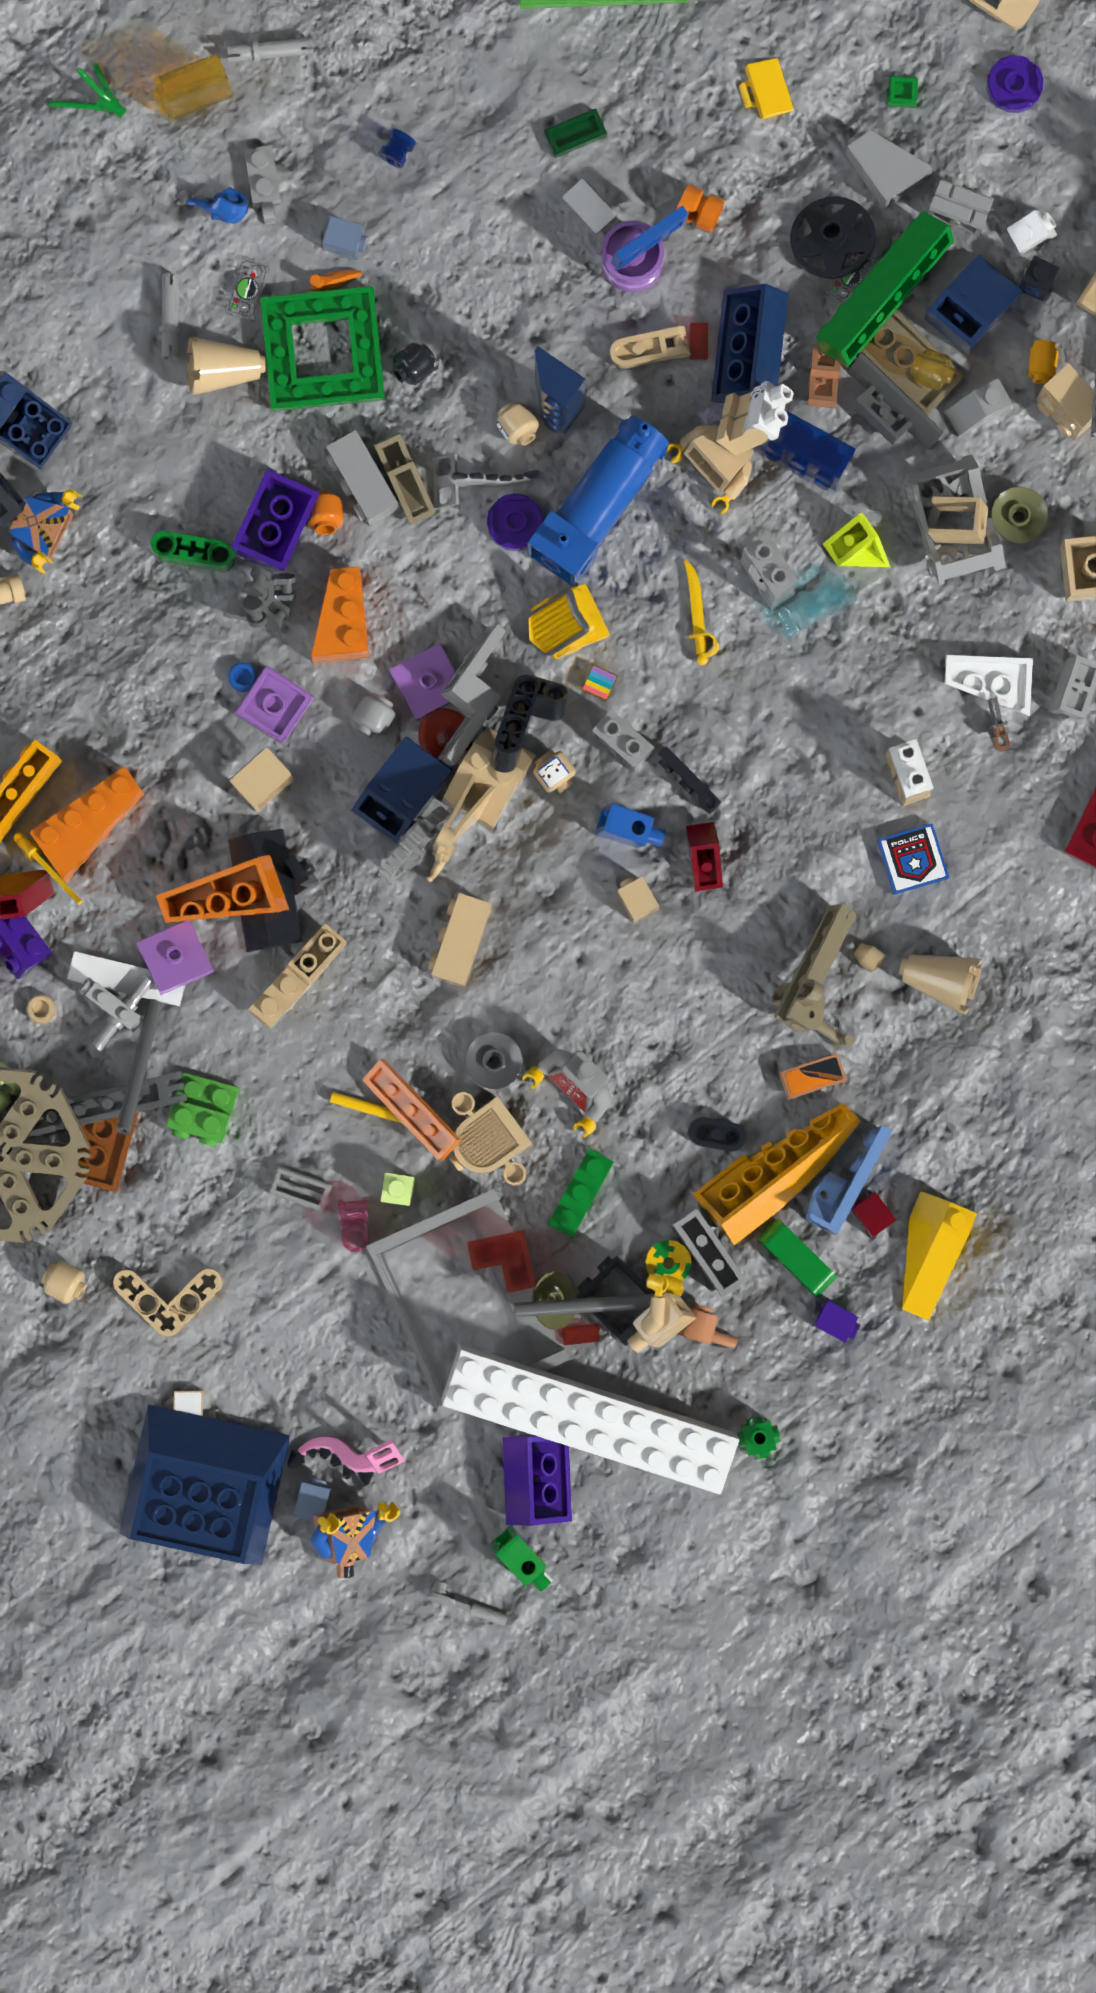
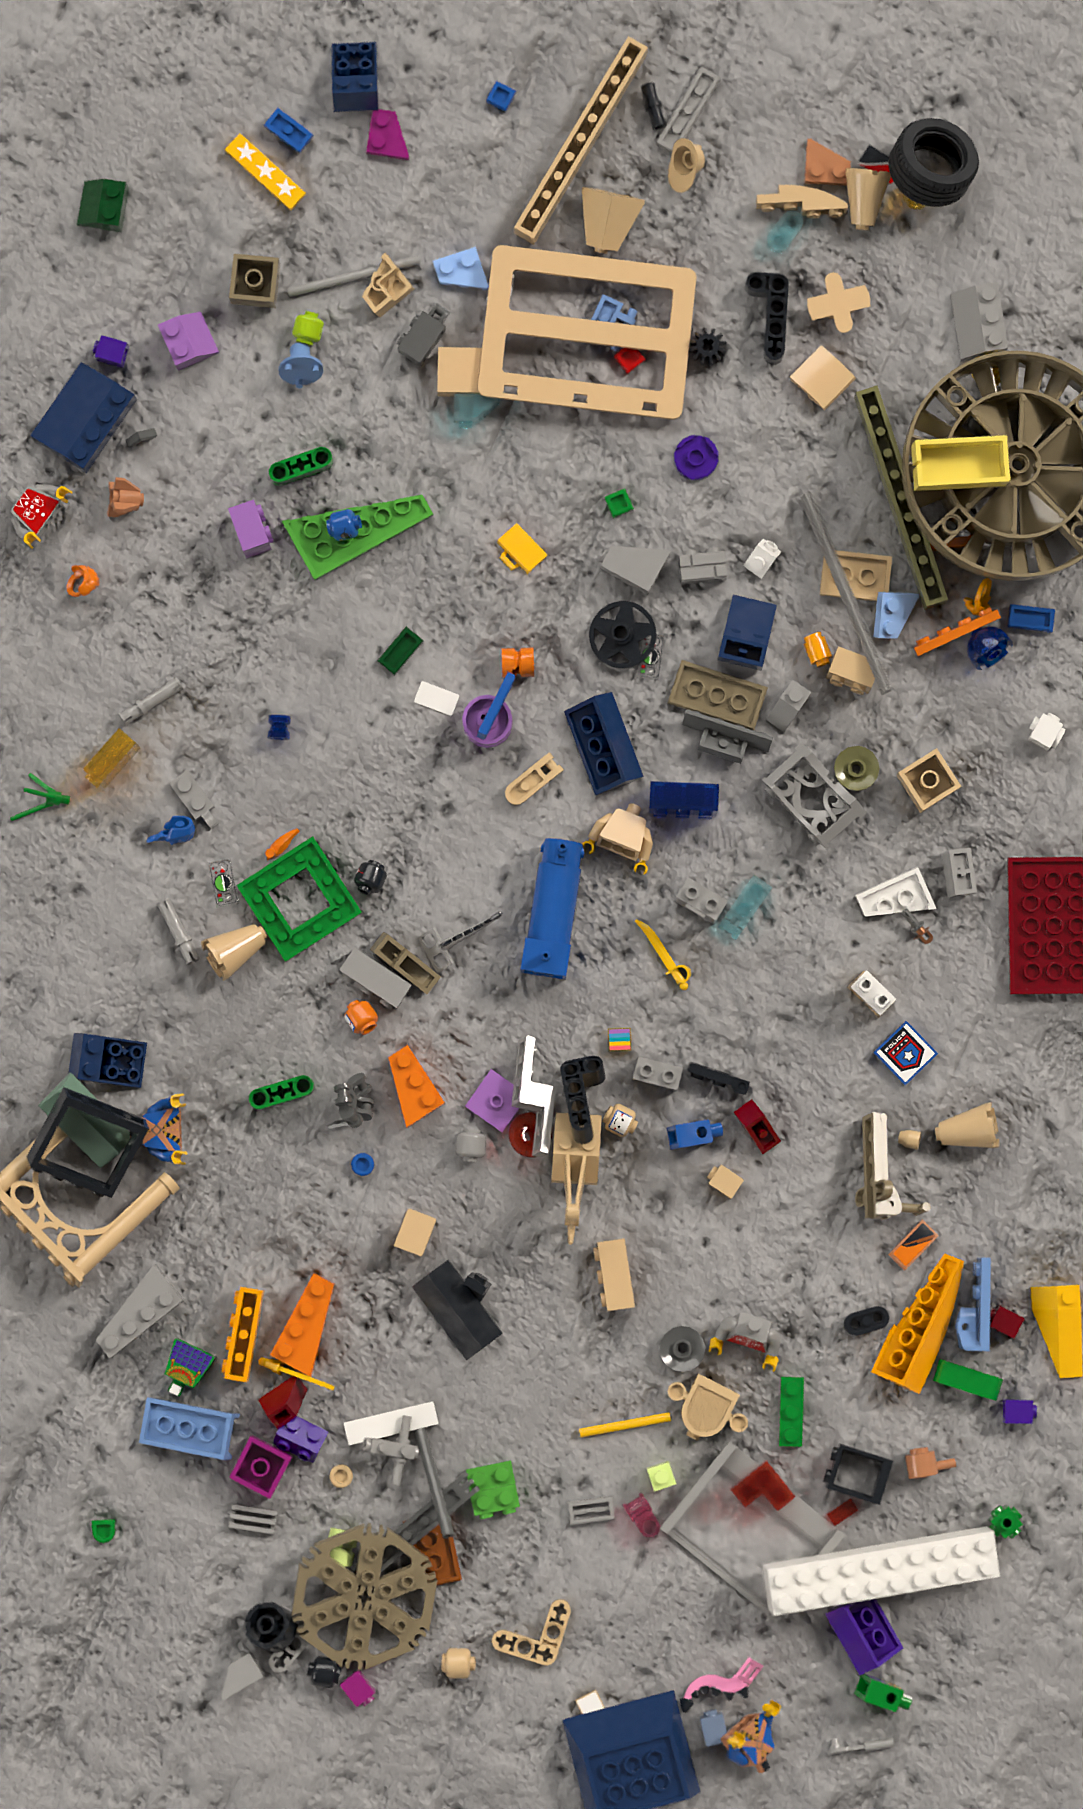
camera: 25 degrees left, 0 degrees up
(174, 957) = (417, 1390): medium lavender plate -> none
(231, 892) = (439, 1323): orange wedge -> none
(274, 521) = (330, 1042): dark purple slope -> none
(274, 704) = (396, 1173): medium lavender plate -> none
(297, 977) = (512, 1360): tan slope -> none
(344, 238) = (275, 811): sand blue brick -> none
(401, 790) = (519, 1190): dark blue slope -> none
(411, 1110) = (642, 1414): orange plate -> none
(414, 845) = (549, 1225): light grey gear -> none
(514, 521) = (500, 954): dark purple tile -> none
(517, 423) = (466, 883): tan head -> none
(554, 1287) = (812, 1498): olive dish -> none
(558, 391) = (486, 850): dark blue slope -> none
(566, 623) = (574, 1009): yellow piece -> none
(582, 1305) = (838, 1490): dark grey piece -> none
(664, 1317) = (897, 1471): tan torso -> none
(673, 1250) = (878, 1440): piece -> none
(699, 341) = (565, 757): clear red piece -> none
(709, 1253) = (904, 1408): light grey brick -> none
(753, 417) = (635, 798): hips -> none
(823, 380) = (667, 738): nougat slope -> none
(857, 545) = (752, 848): neon yellow slope -> none
(884, 288) = (679, 654): green brick -> none
(932, 369) = (742, 696): clear yellow head -> none
(959, 536) = (832, 790): tan piece -> none
(1038, 278) = (784, 591): black brick -> none

